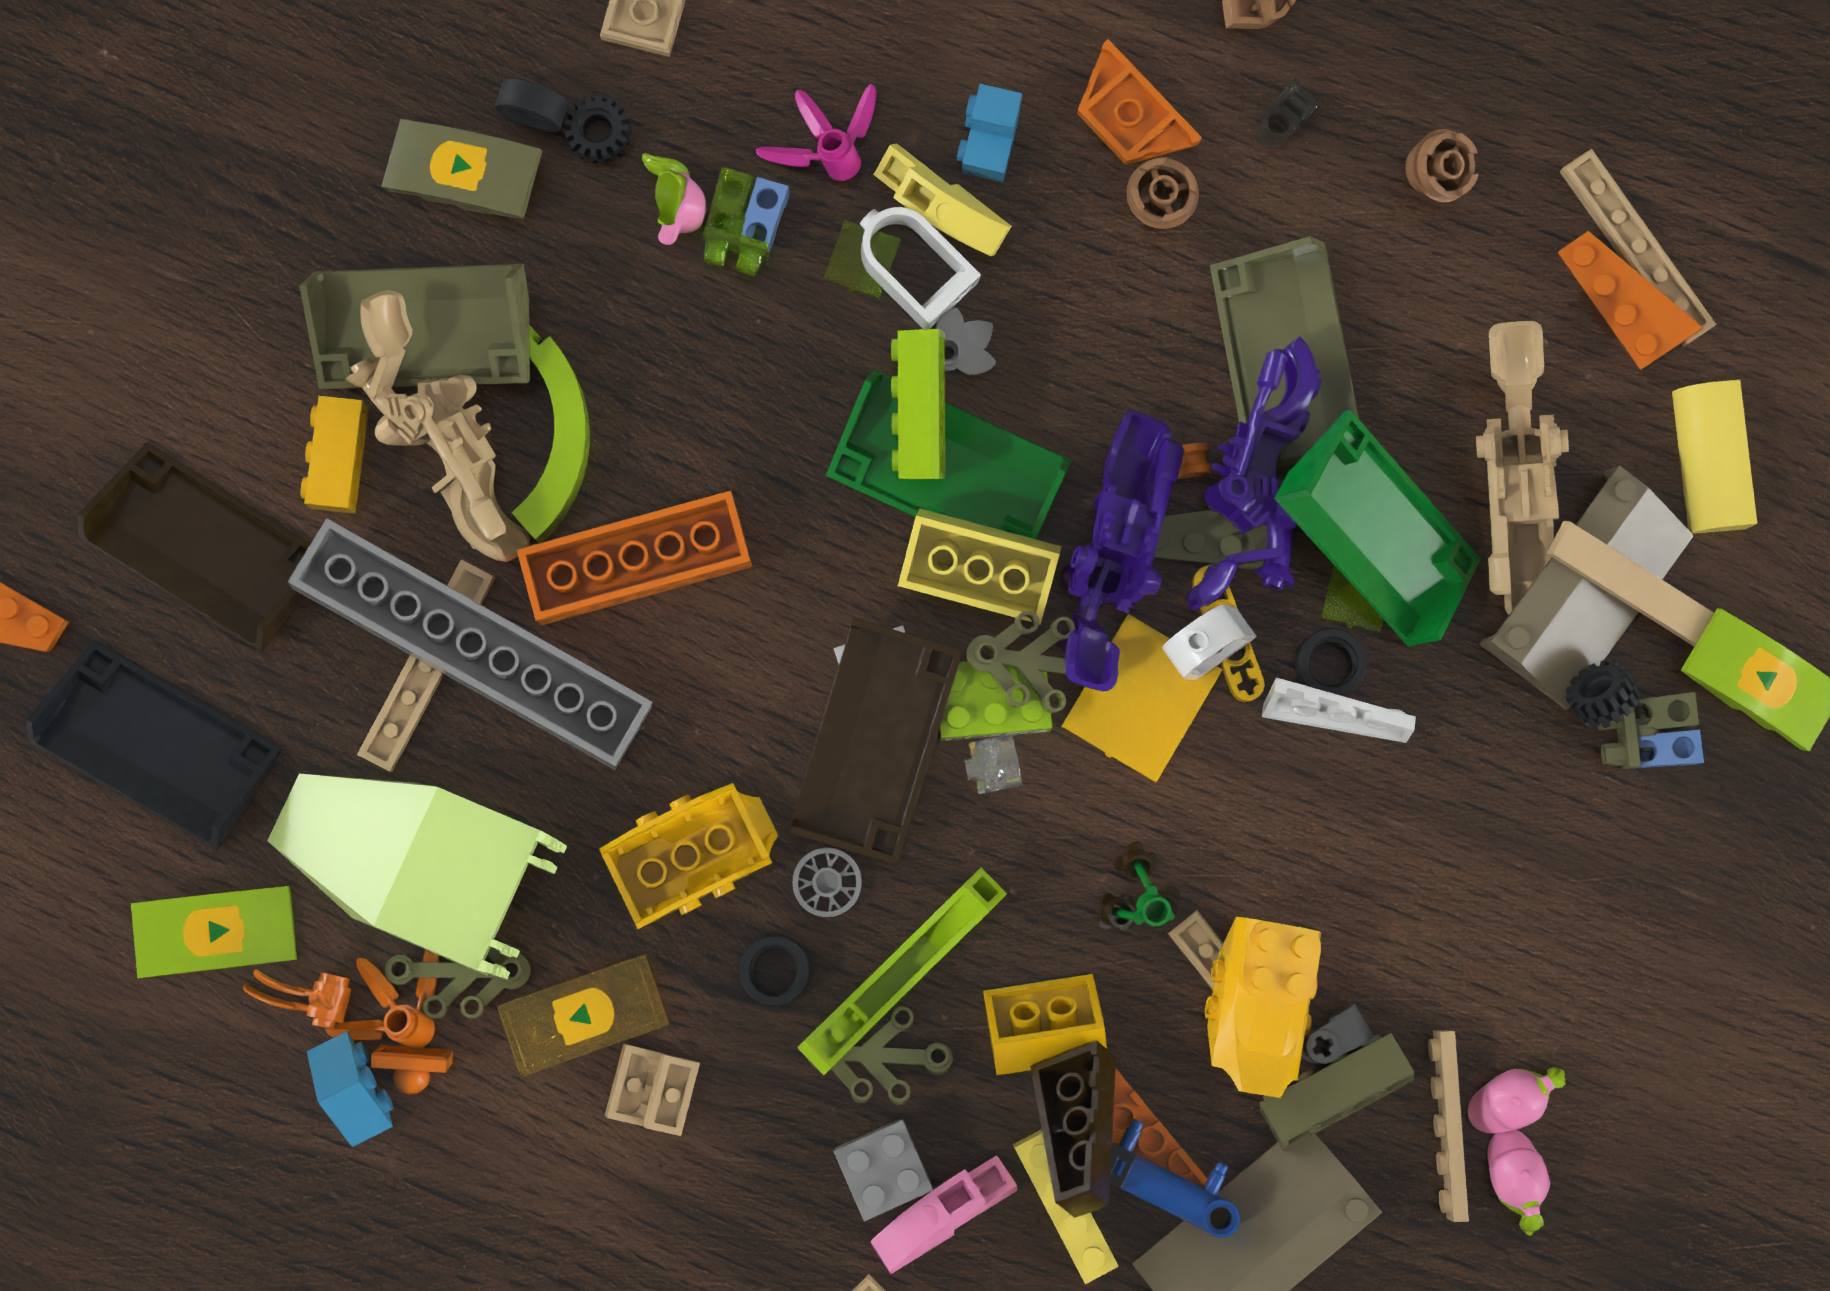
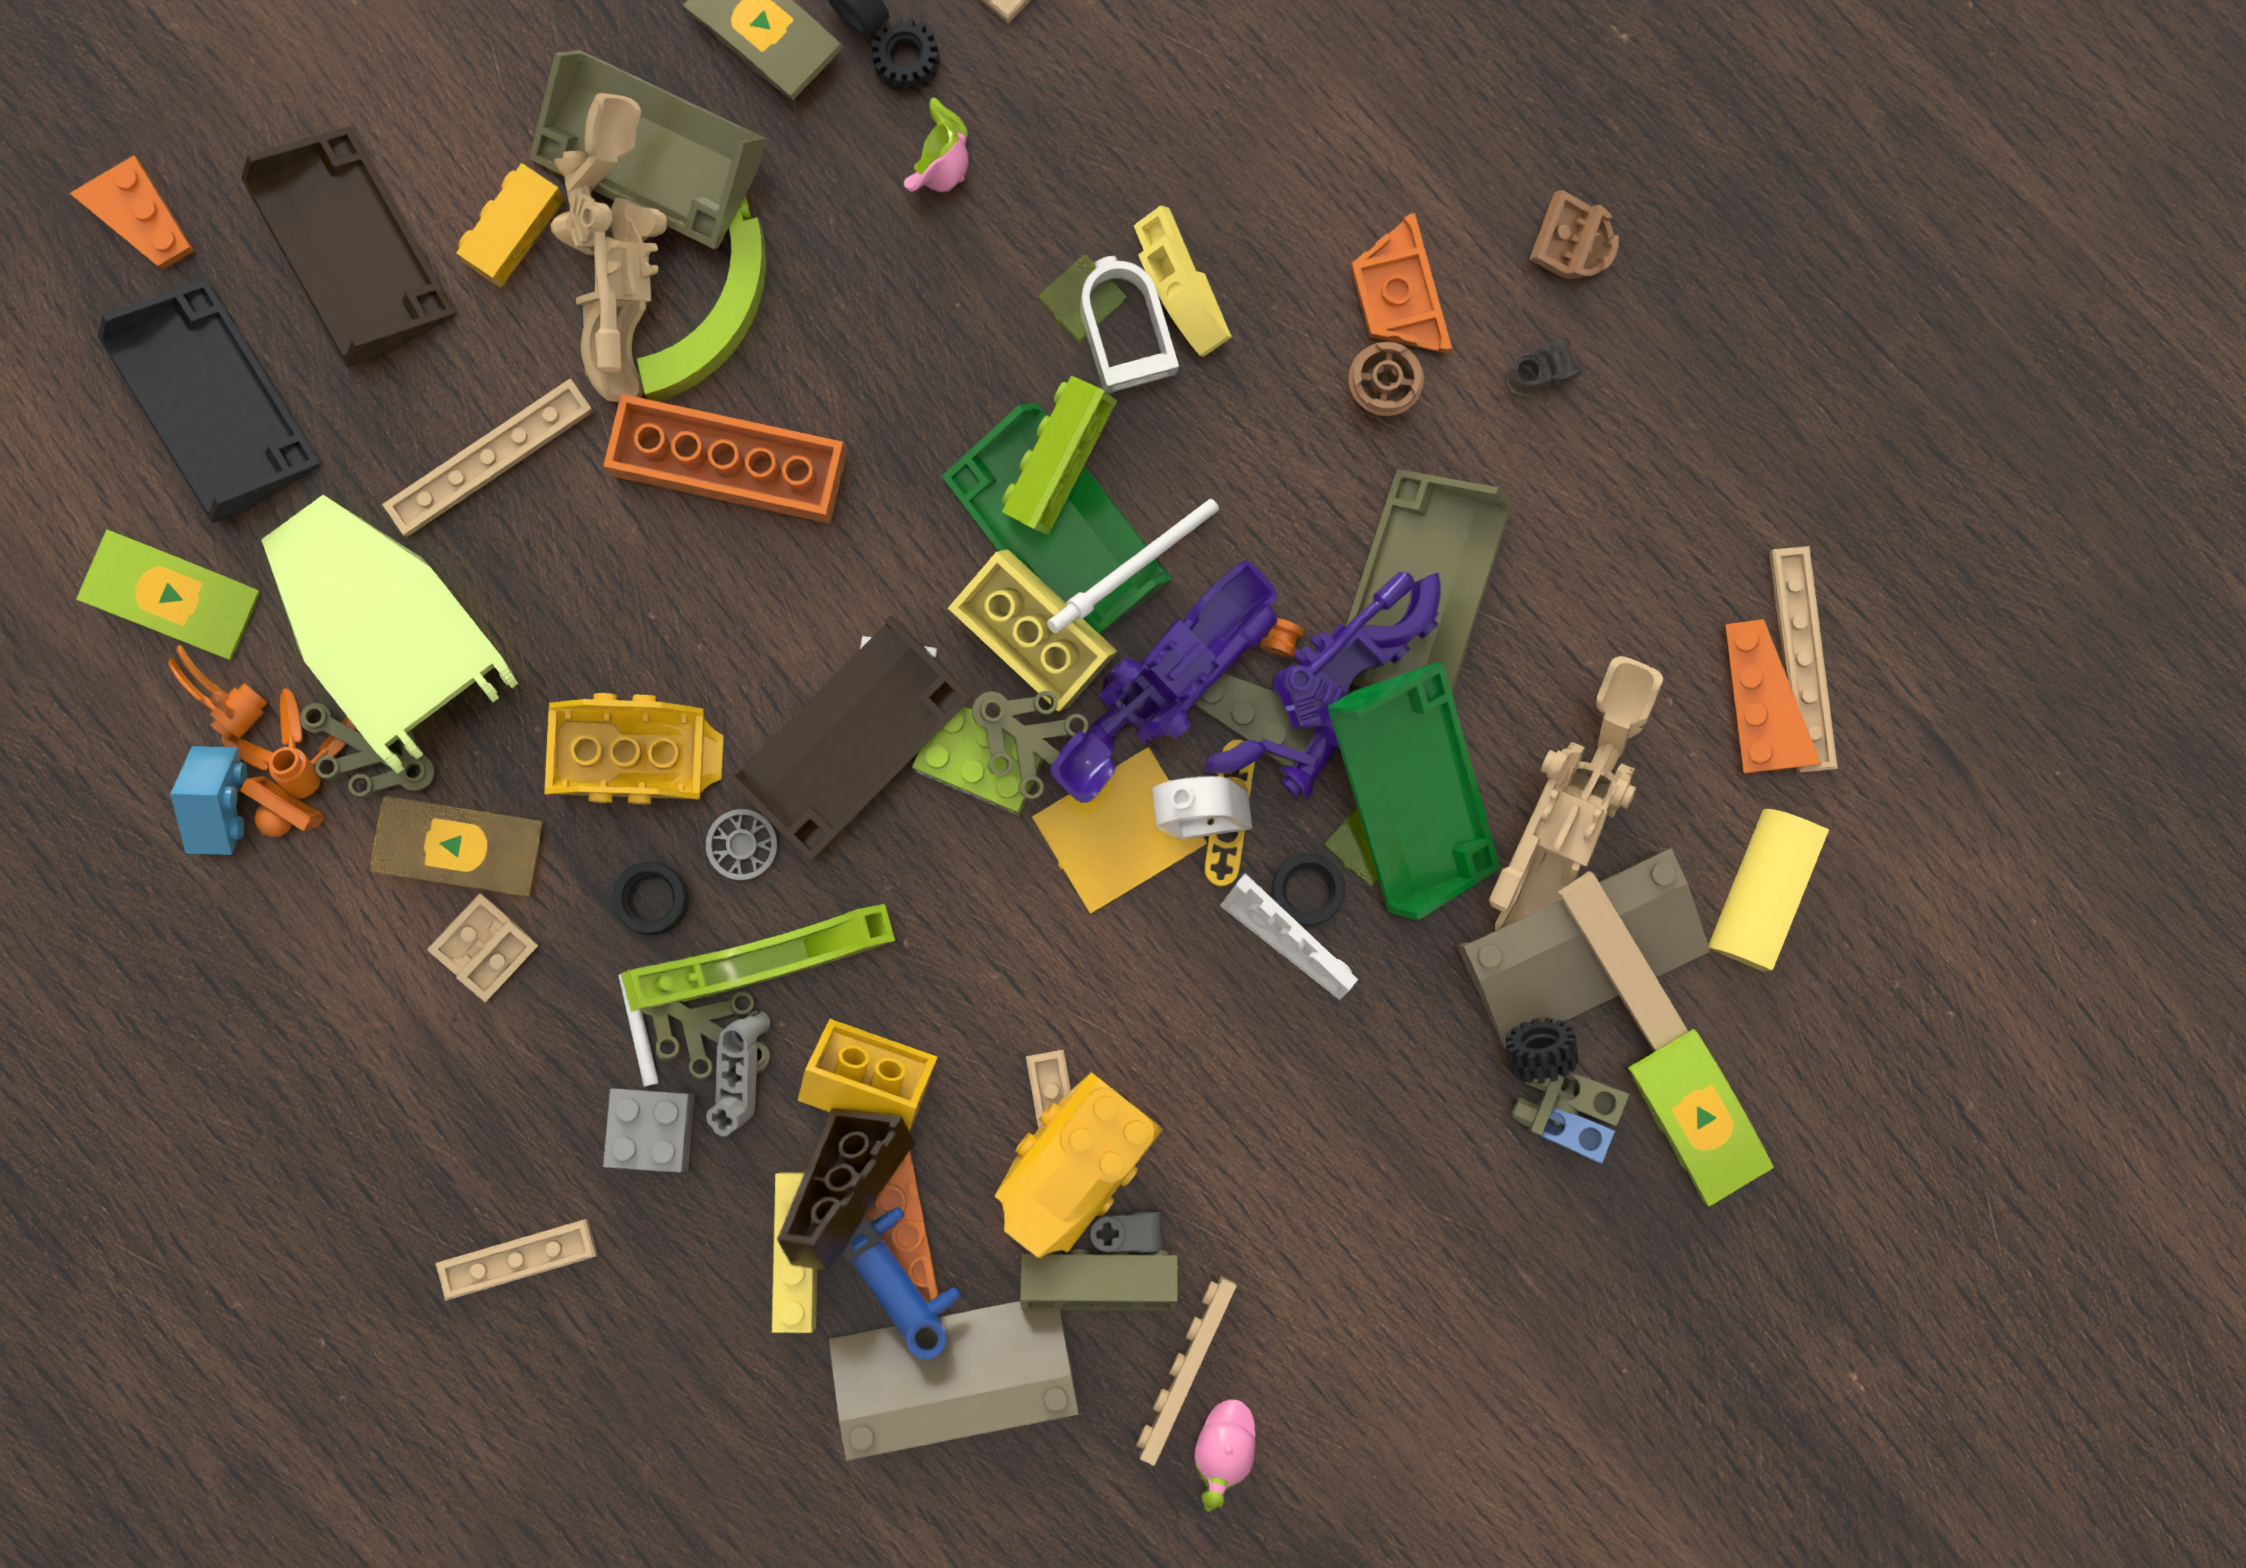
camera: 25 degrees right, 0 degrees up
(470, 644) = (534, 457): light grey brick -> none
(743, 232) = (992, 204): clear neon green hips -> none
(825, 1088) = (641, 1042): none -> white bar
(834, 147) = (1108, 180): dark pink plant -> none
(940, 1101) = (736, 1097): none -> light grey beam
(941, 1212) = (680, 1196): bright pink slope -> none
(967, 343) = (1136, 423): light grey plate -> none
(993, 125) = (1265, 238): dark azure brick -> none
(993, 764) = (948, 817): clear brick -> none
(1014, 520) = (1082, 603): none -> white bar
(1152, 907) = (1017, 1022): dark brown plant -> none
(1442, 165) = (1659, 488): medium nougat cone -> none
(1513, 1099) = (1259, 1378): bright pink hair -> none

